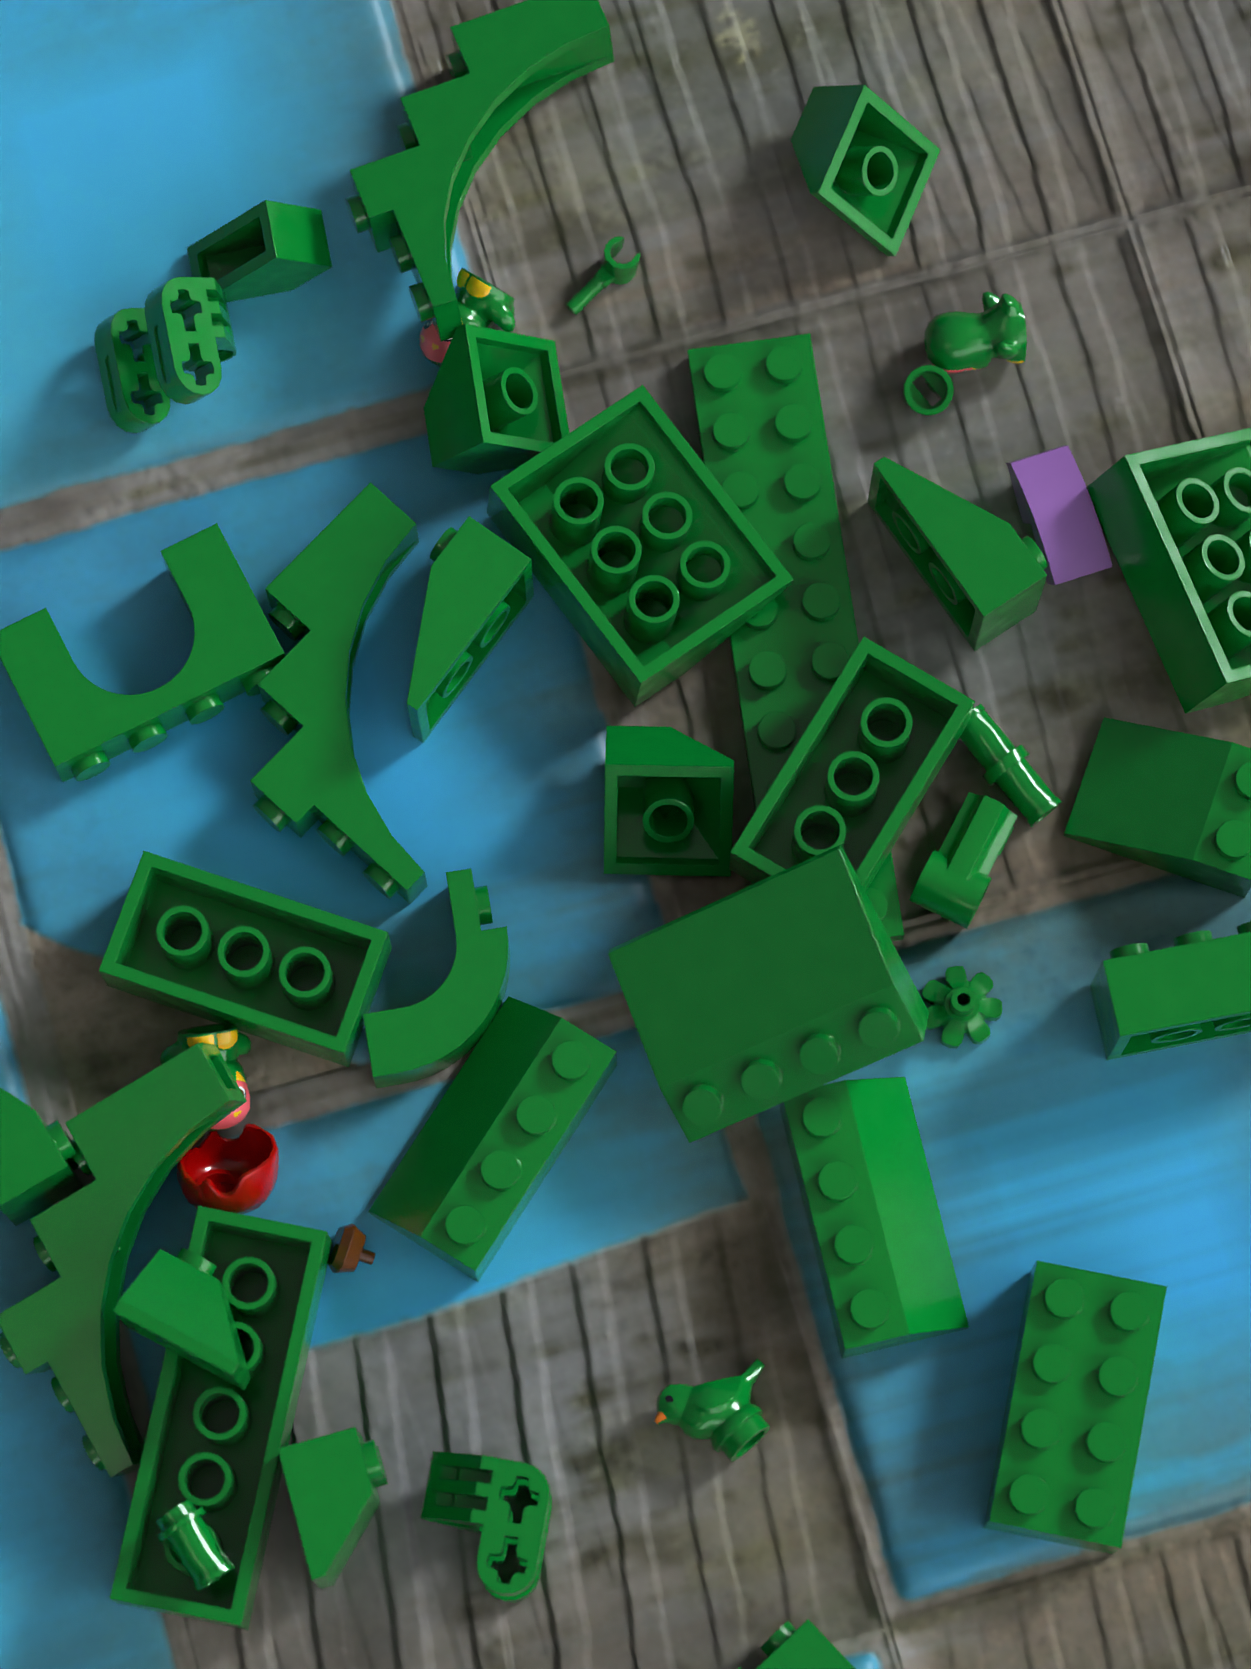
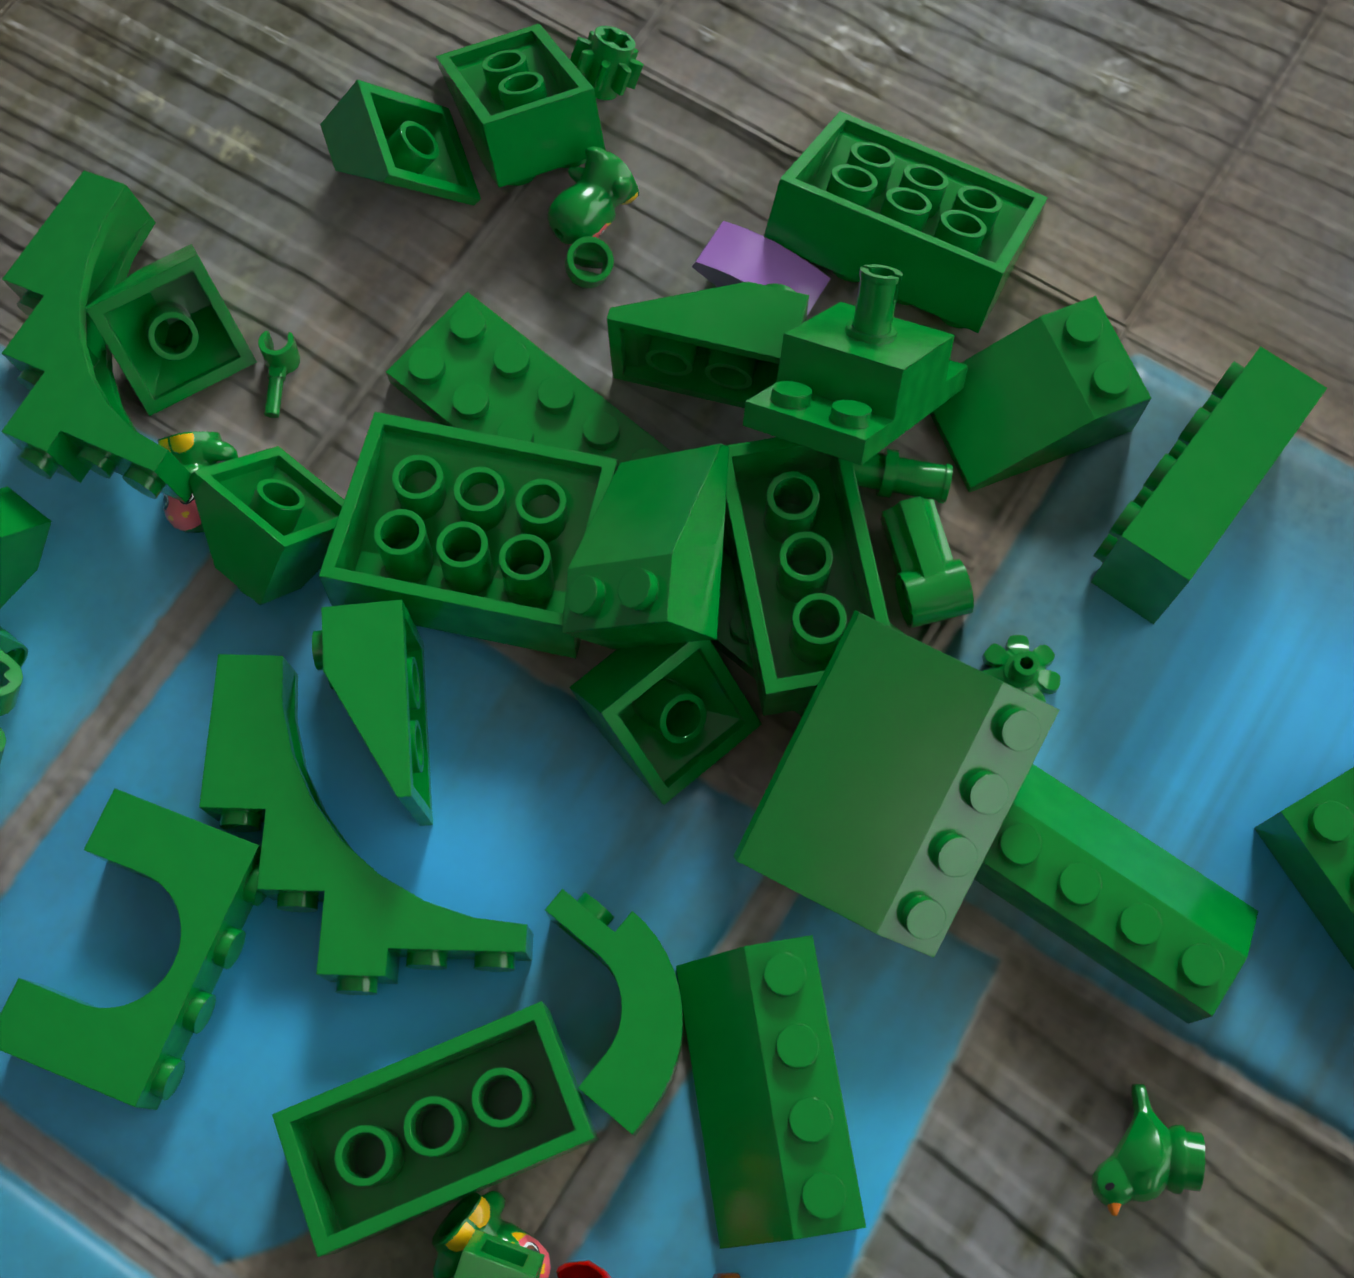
camera: 40 degrees left, 5 degrees down
(549, 174) = (170, 330): none -> green slope
(747, 675) = (652, 554): none -> green slope
(999, 197) = (523, 104): none -> green slope
(1021, 674) = (857, 375): none -> green brick
(1099, 222) = (607, 61): none -> green gear

